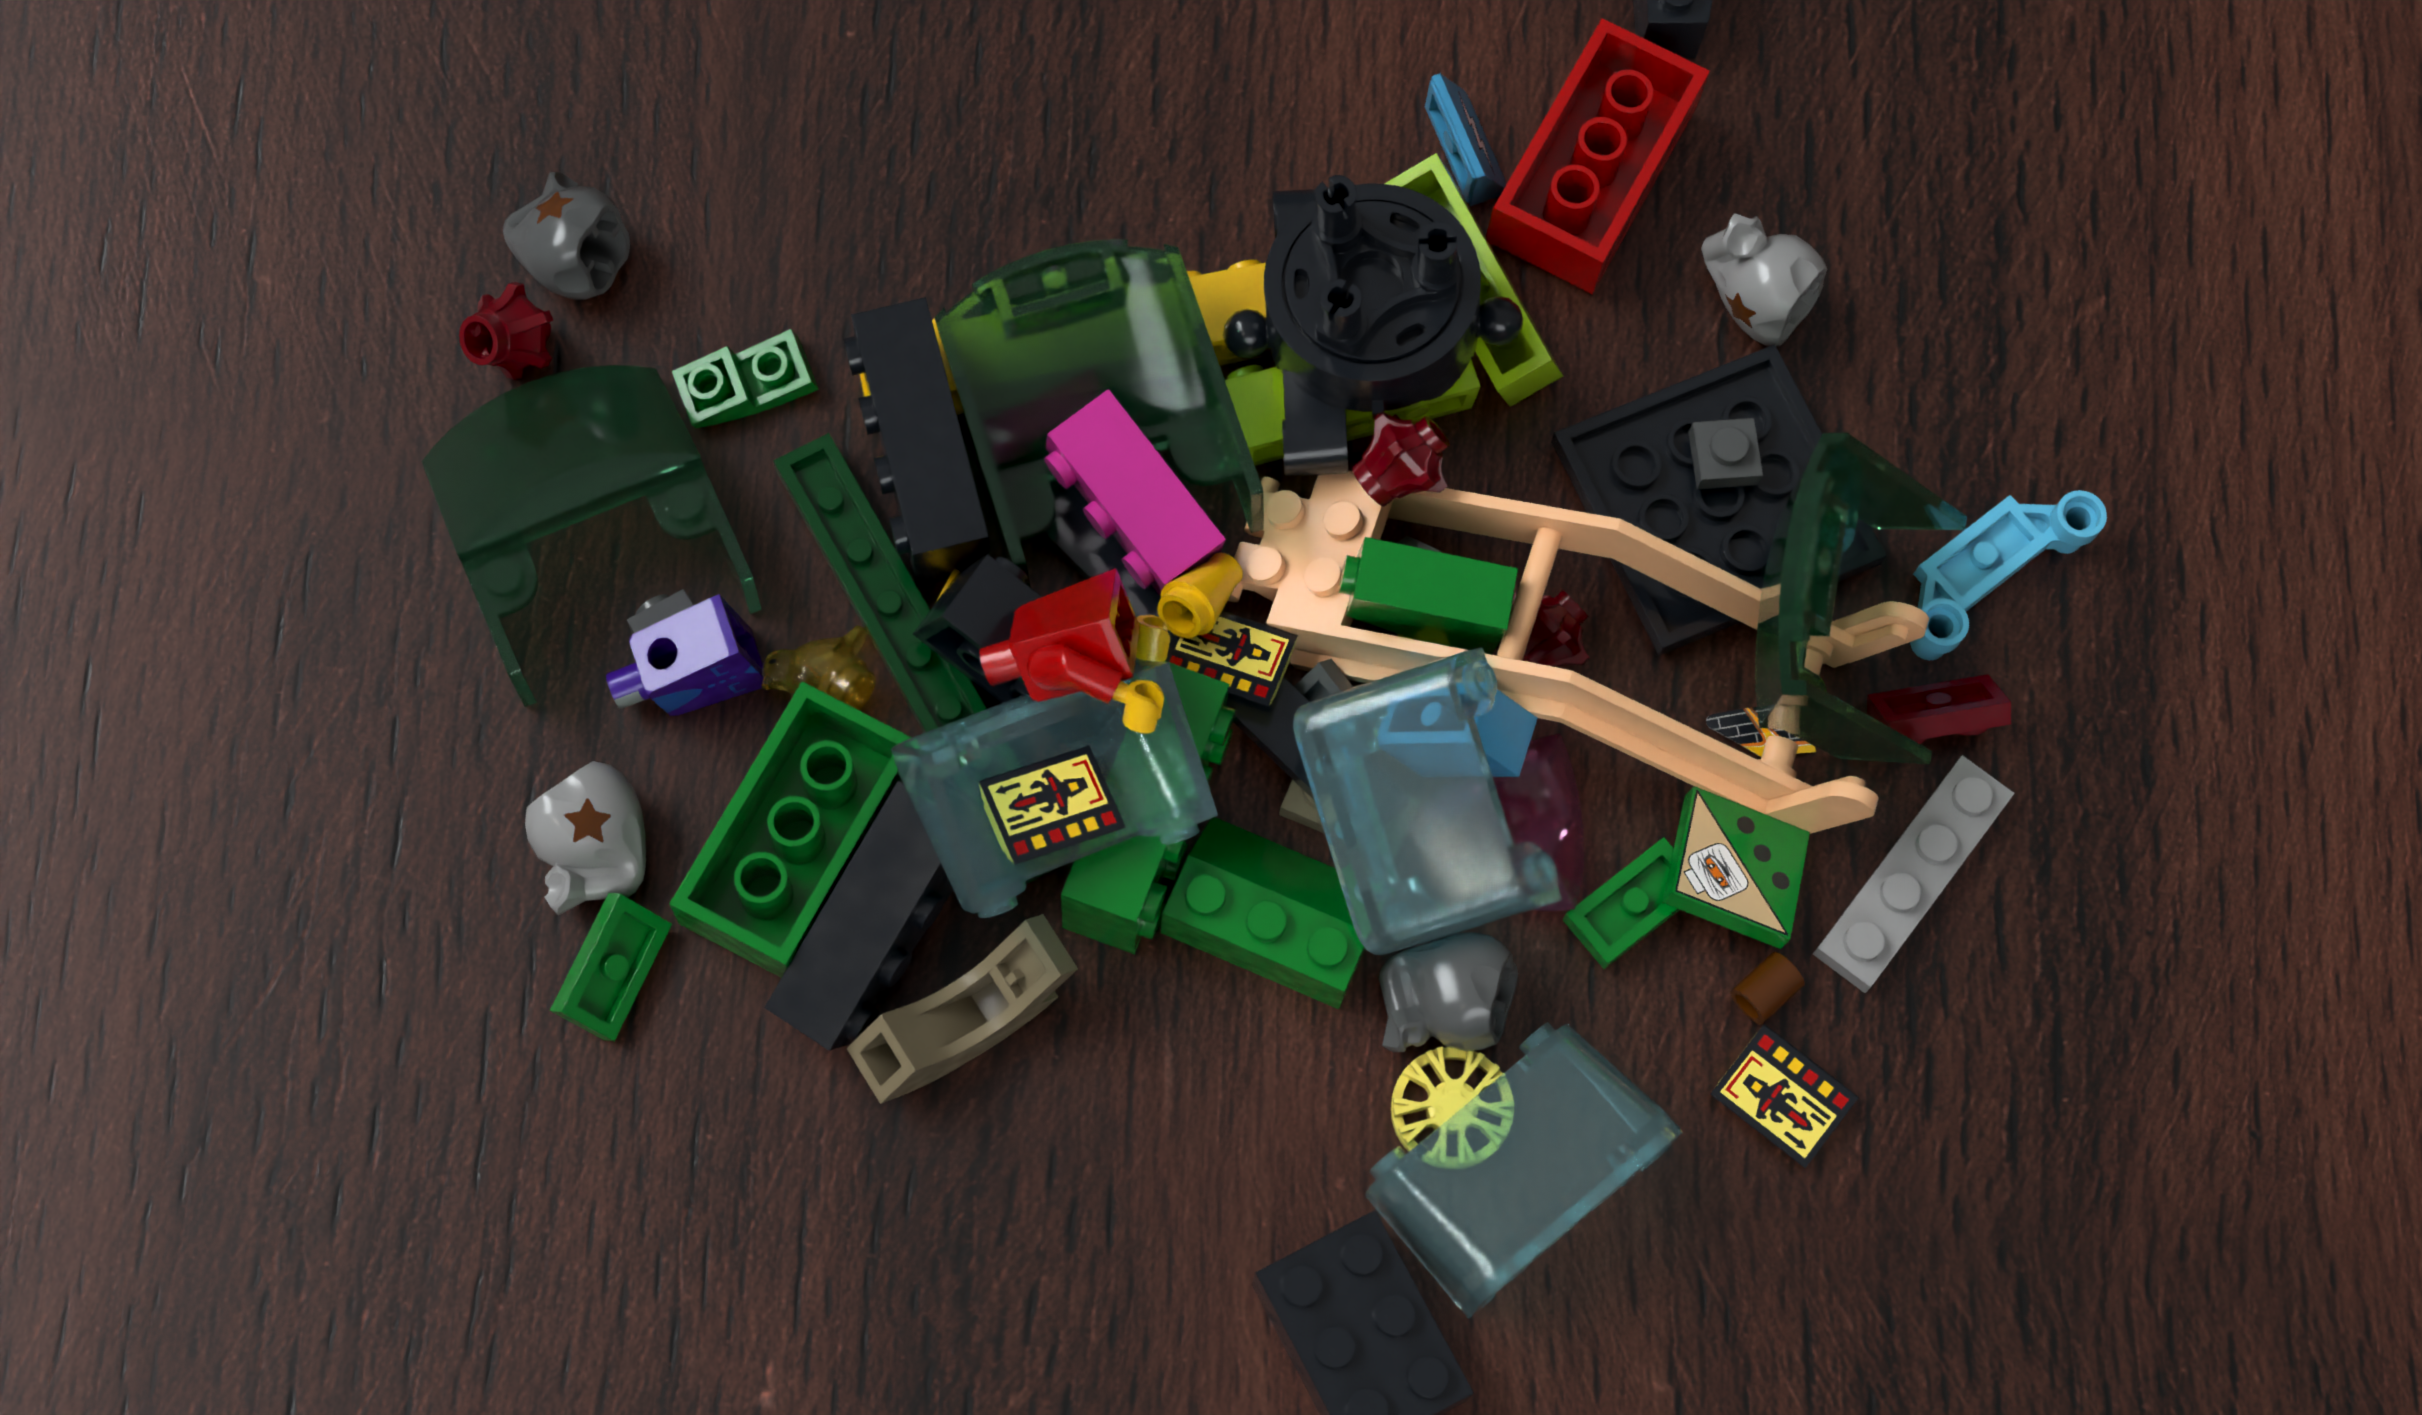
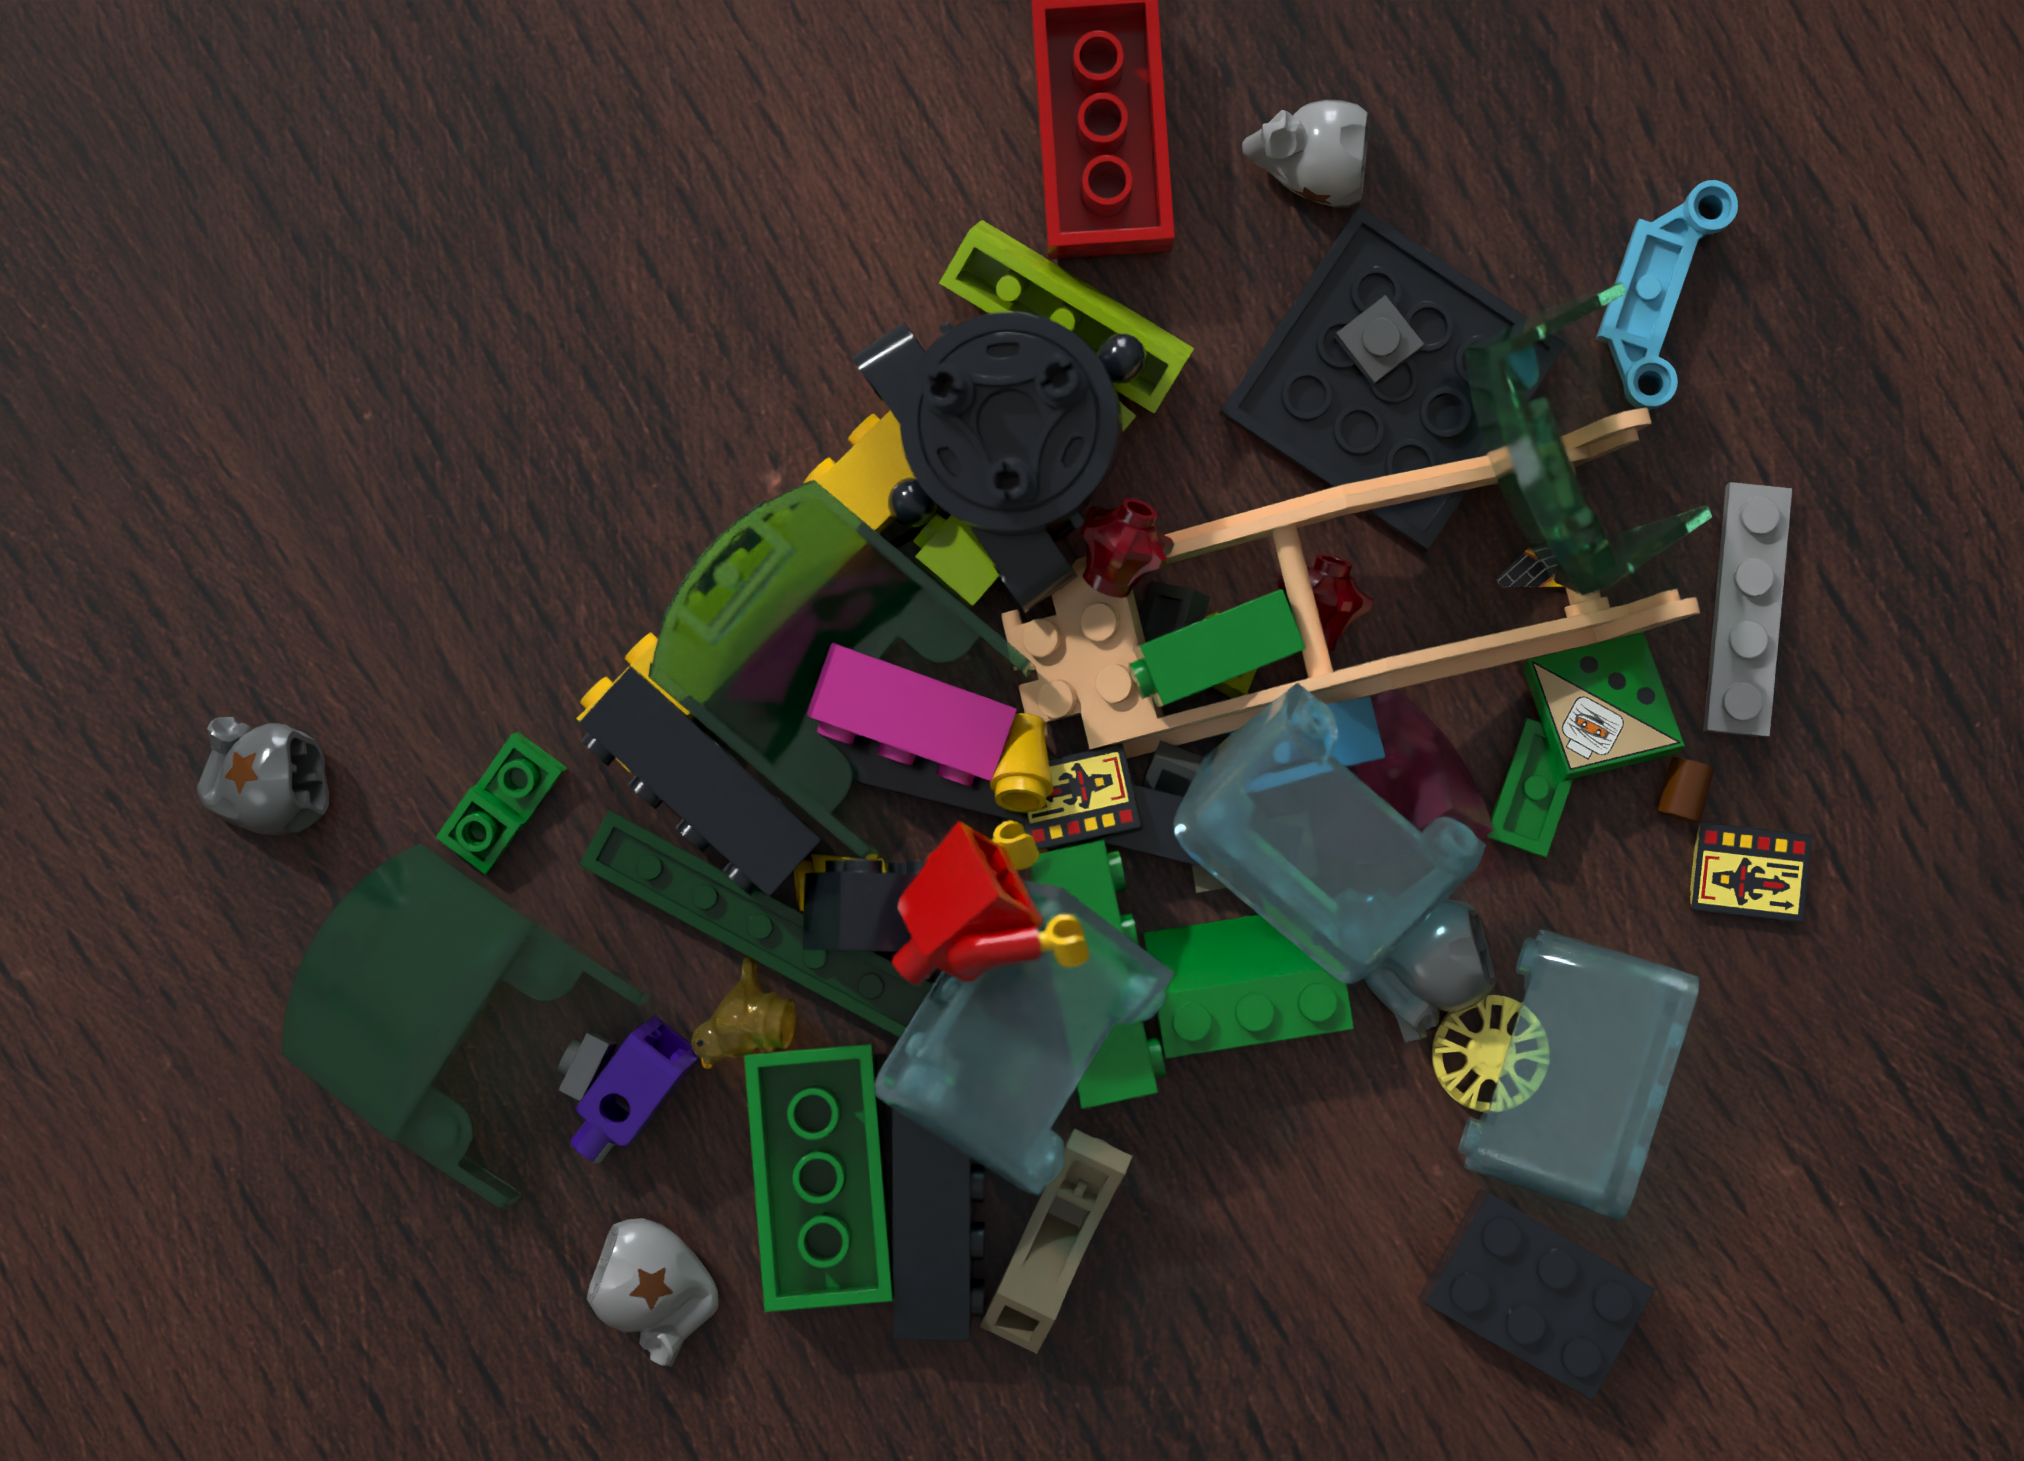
camera: 25 degrees left, 15 degrees up
(507, 333) = (275, 898): dark red rock -> none
(611, 967) = (743, 1379): green plate -> none
(1050, 805) = (1033, 1052): piece -> none
(1463, 141) = (974, 175): dark azure slope -> none
(1942, 708) = (1688, 455): dark red plate -> none

